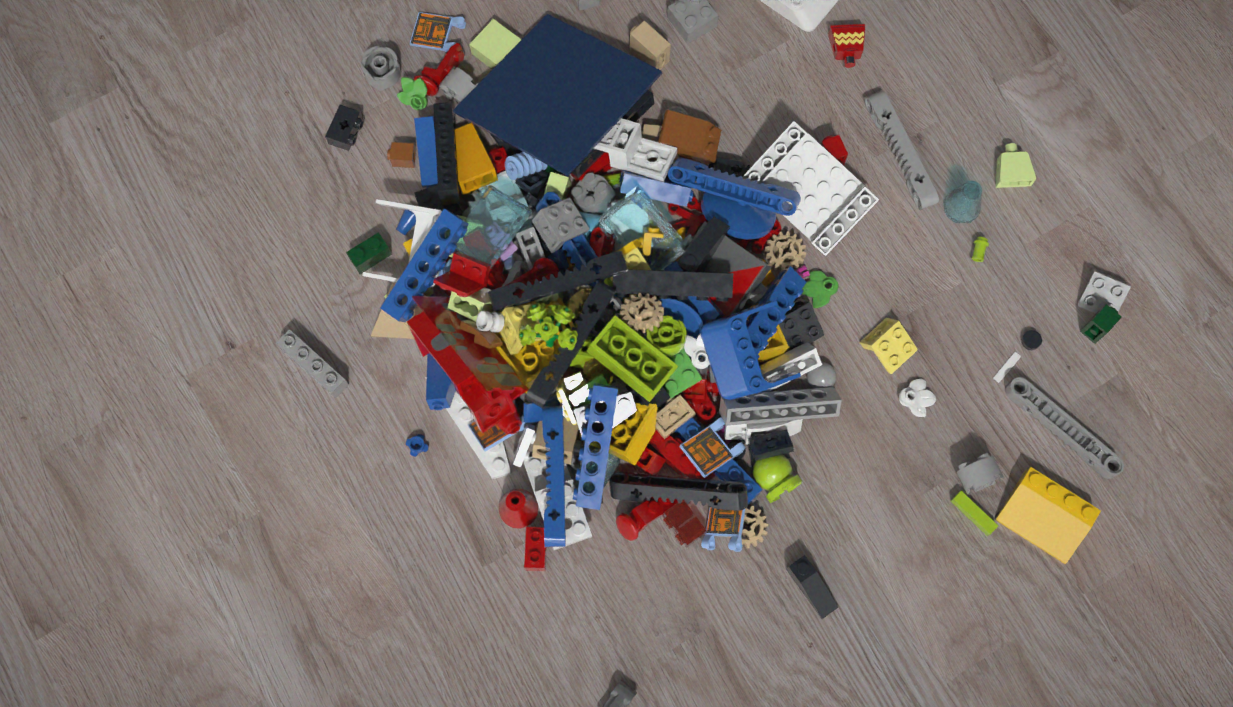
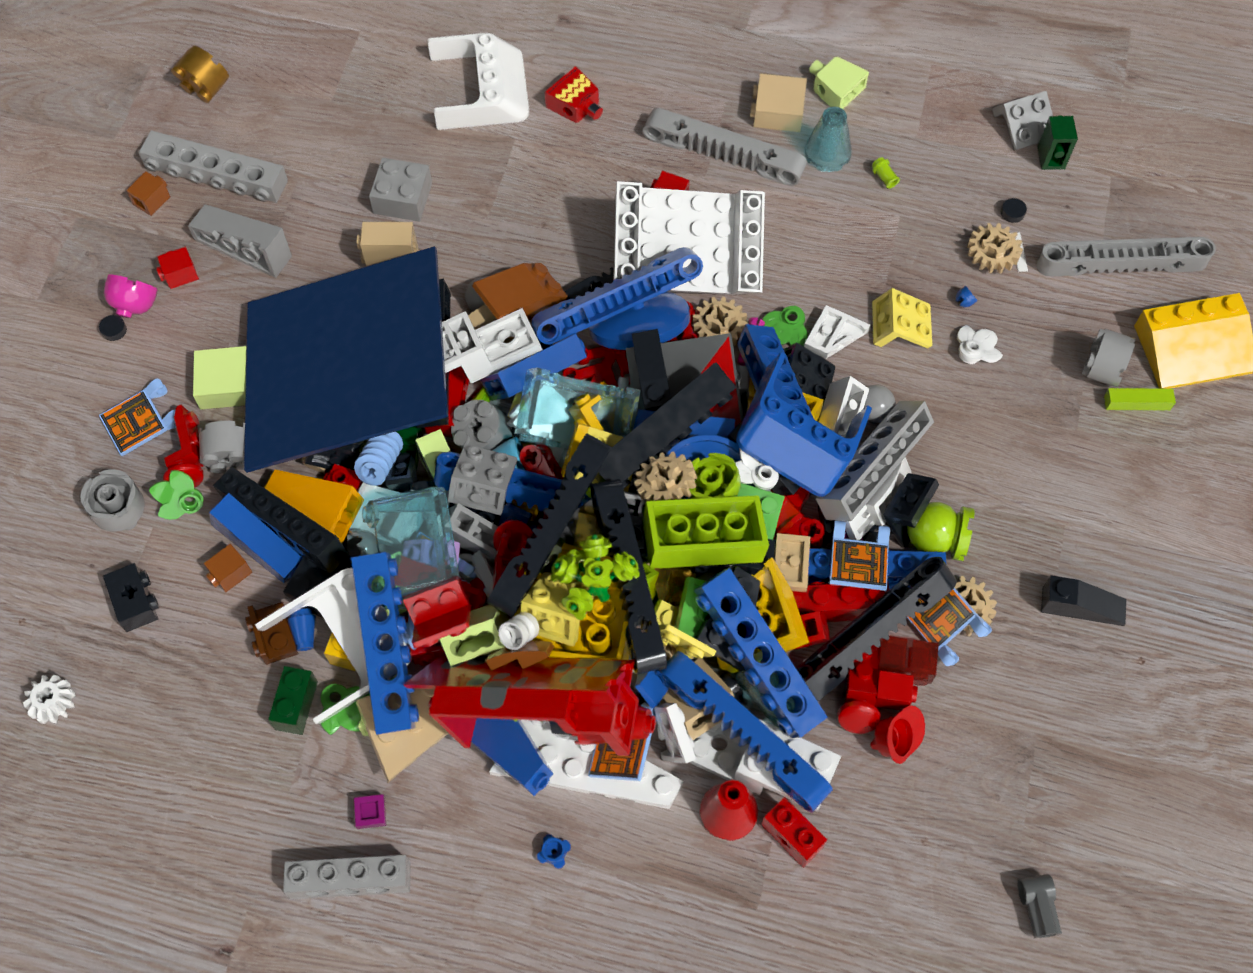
camera: 45 degrees left, 10 degrees down
(255, 143) = (49, 699): none -> white gear
(352, 342) = (370, 811): none -> magenta plate
(384, 284) = (348, 717): none -> bright green plate
(390, 216) = (274, 642): none -> reddish brown bracket
(639, 556) = (900, 735): none -> red piece
(659, 532) = (895, 690): none -> red brick
(843, 315) = (834, 332): none -> white wing
(943, 364) = (969, 298): none -> blue hinge
(963, 150) = (778, 102): none -> tan piece
(998, 355) = (994, 248): none -> tan gear

